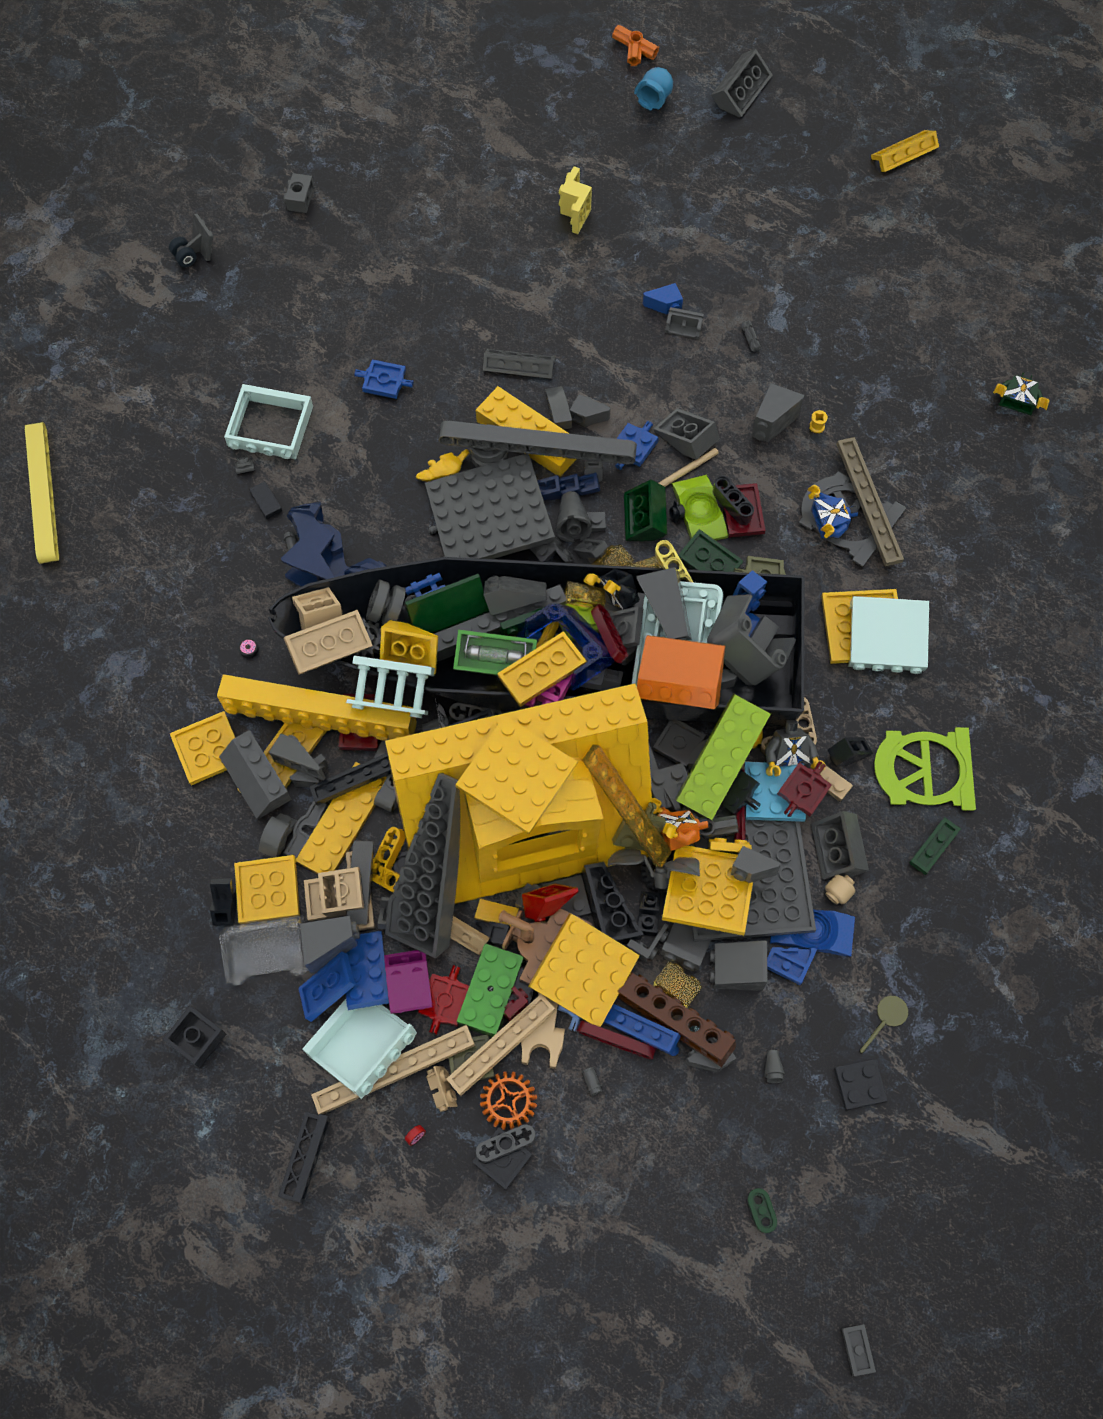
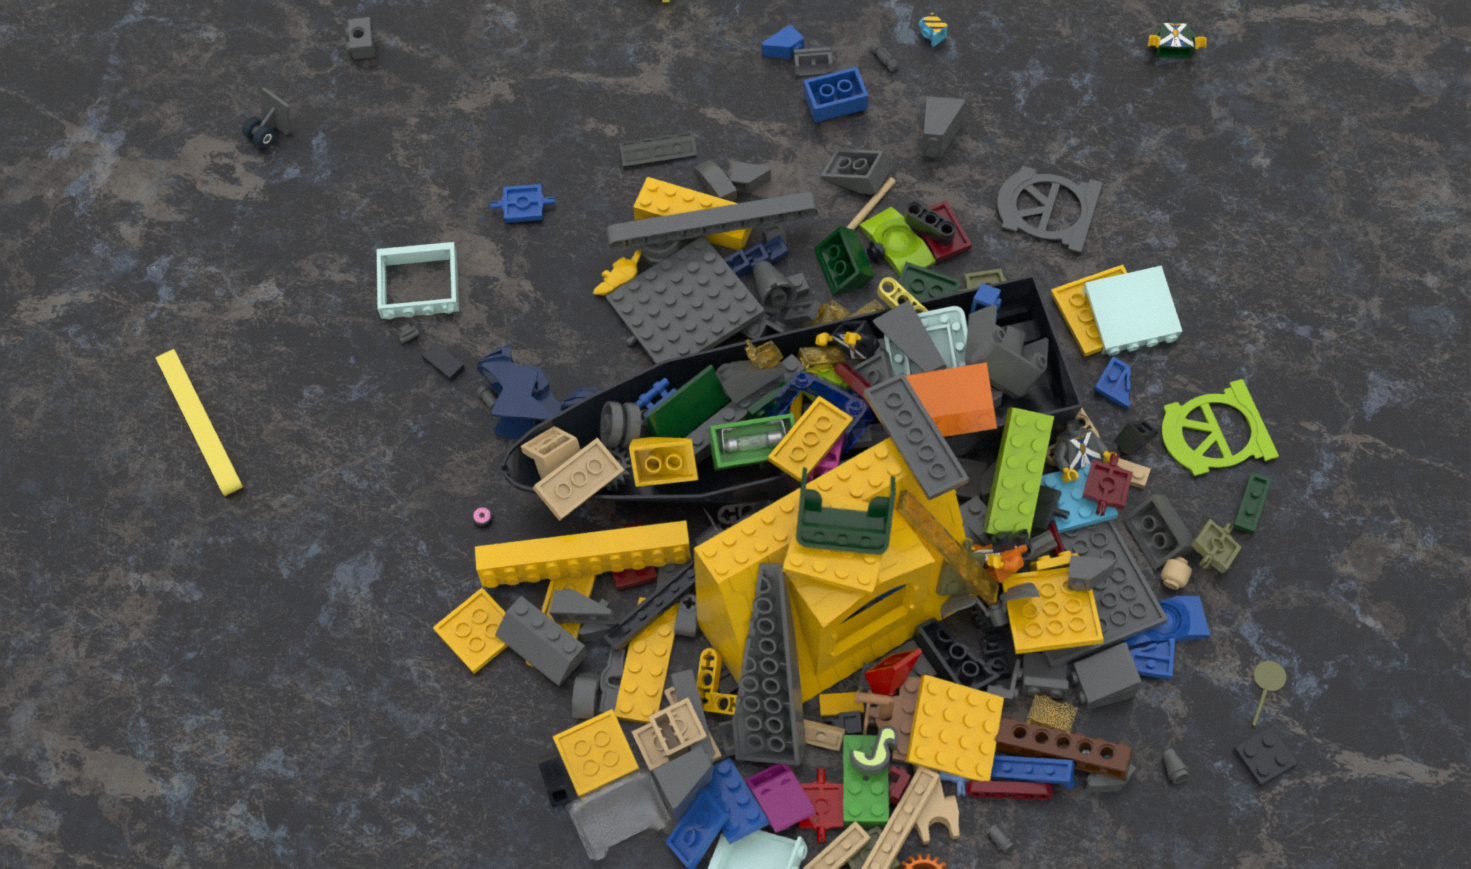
camera: 15 degrees left, 5 degrees down
(403, 670) = (645, 487): light aqua fence -> none
(507, 974) = (880, 757): none -> dark grey animal
(521, 764) = (844, 528): none -> dark green windscreen
(531, 579) = (764, 355): none -> clear yellow bracket
(622, 699) = (916, 436): none -> dark grey plate
(644, 440) = (818, 188): blue plate -> none
(691, 814) = (1006, 541): none -> black plate
(692, 358) = (835, 94): none -> blue brick
(803, 323) = (933, 29): none -> brick
(818, 421) = (984, 122): yellow bush -> none
(830, 513) = (1031, 209): torso -> none
(849, 696) = (1115, 382): none -> blue wing
(870, 502) = (1065, 186): dark tan plate -> none
(885, 876) = (1216, 545): none -> olive plate

